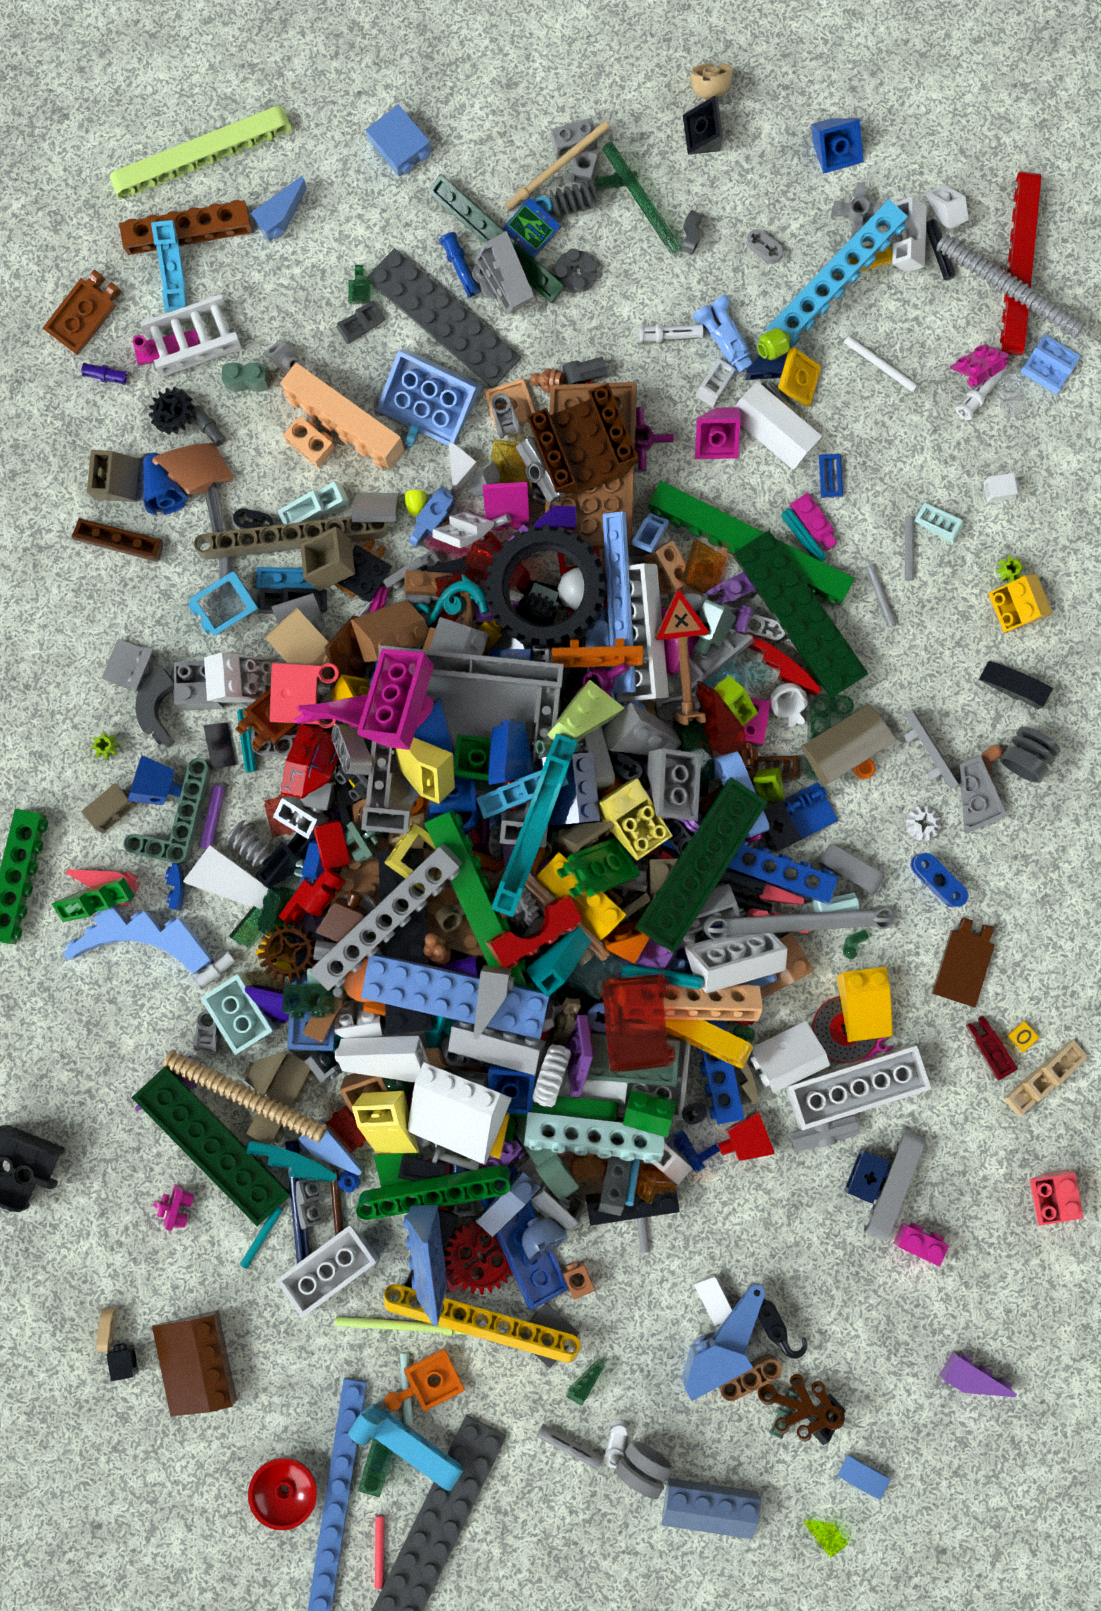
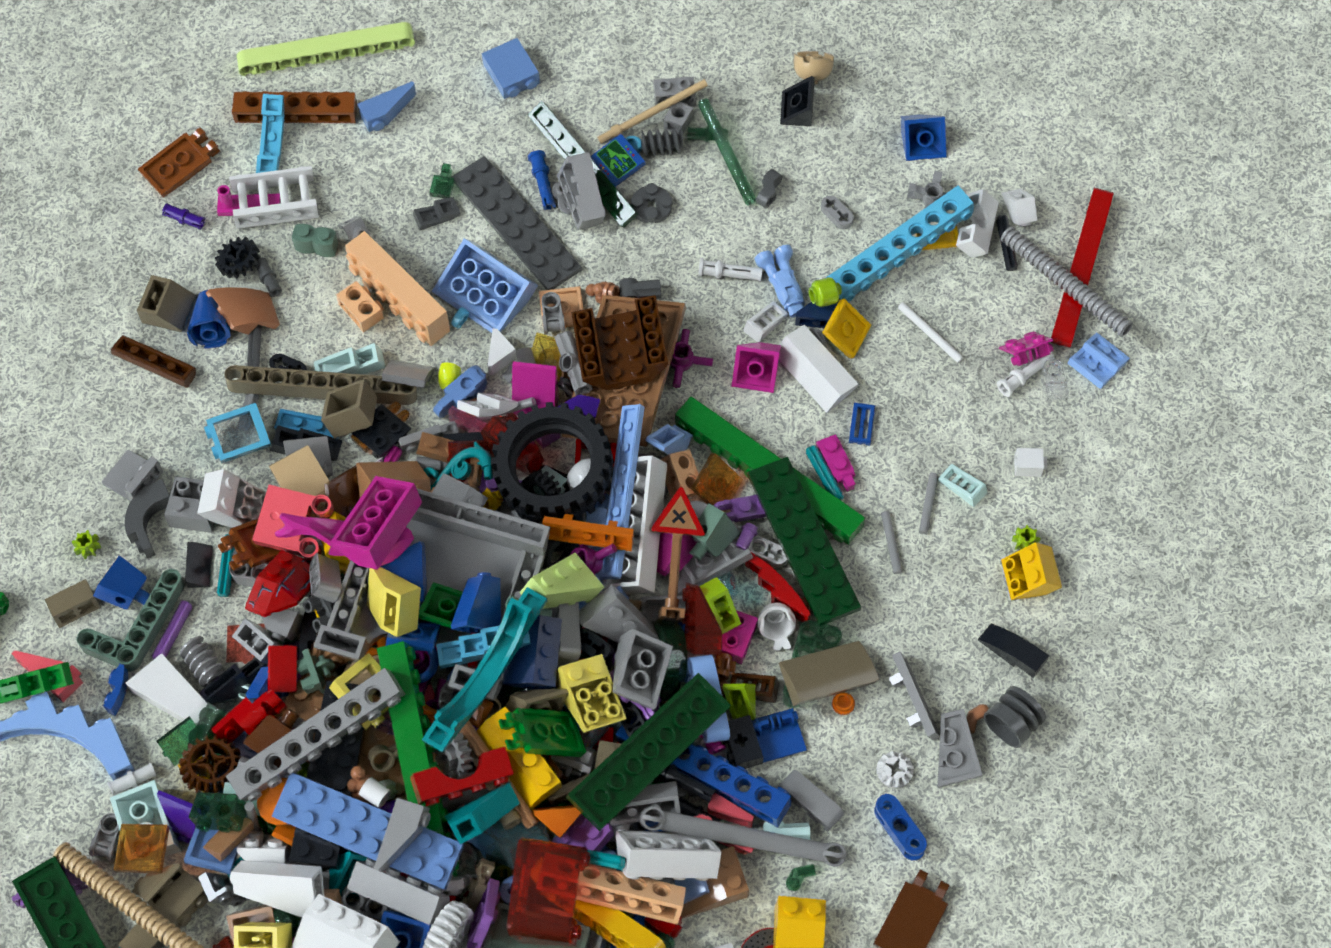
camera: 10 degrees right, 20 degrees down
(244, 1043) = (141, 848): none -> clear orange plate
(456, 954) = (378, 791): none -> white piece

